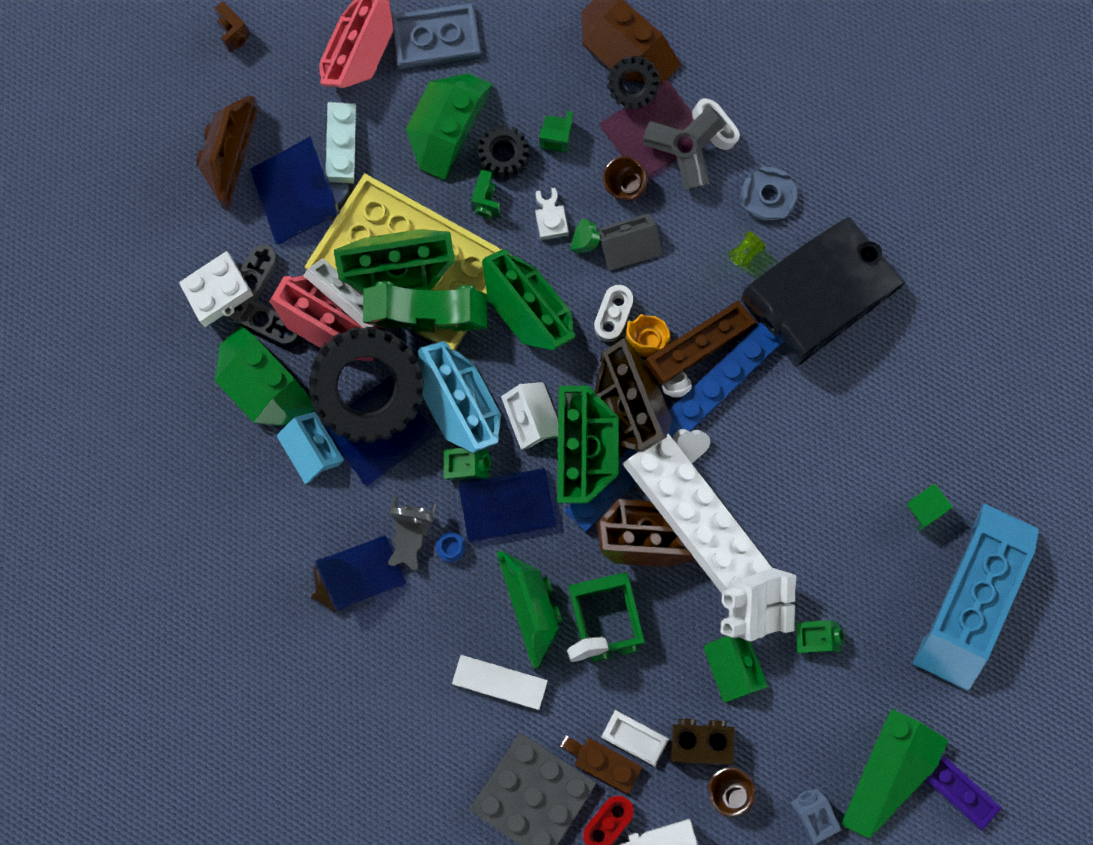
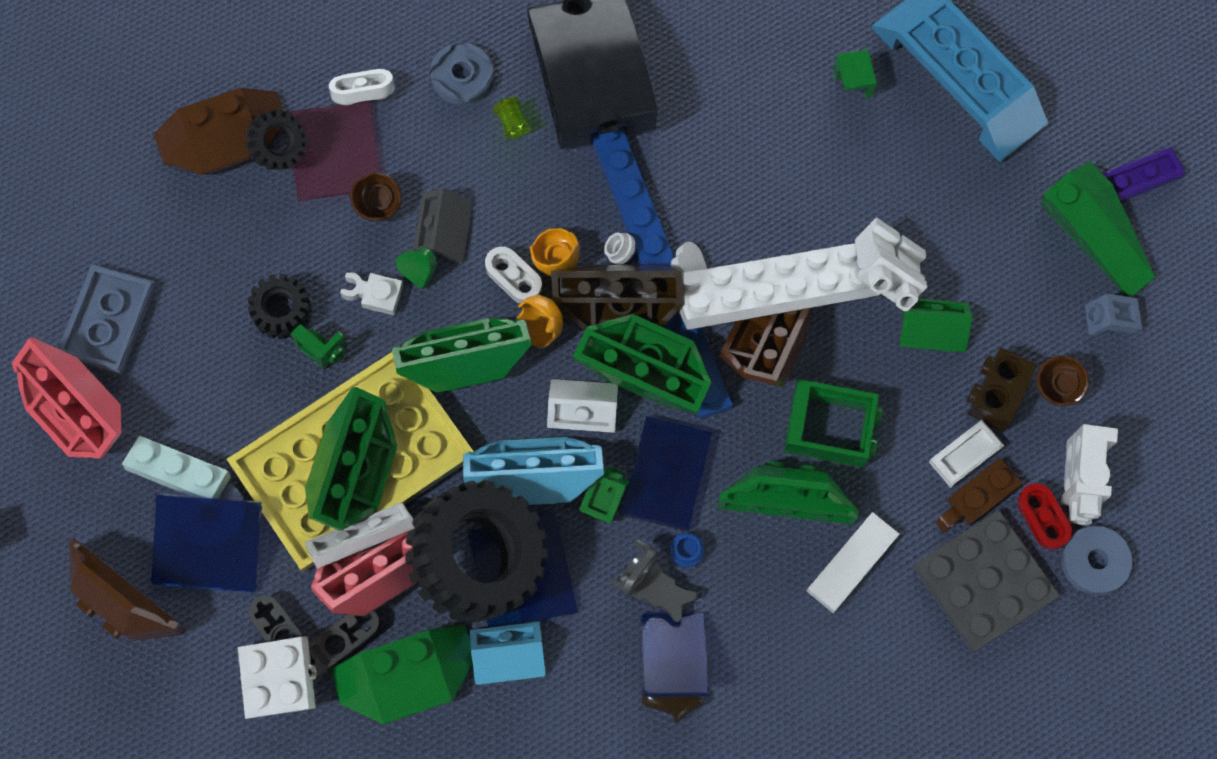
camera: 70 degrees left, 5 degrees down
(424, 309) = (418, 460): green brick -> none
(445, 121) = (211, 351): green wedge -> none
(556, 133) = (286, 243): green panel -> none
(584, 350) = (542, 320): none -> light orange hair
(587, 648) = (864, 450): white tile -> none
(670, 139) = (356, 135): dark grey piece -> none
(700, 342) = (588, 205): reddish brown plate -> none
(819, 637) = (939, 232): green bracket -> none

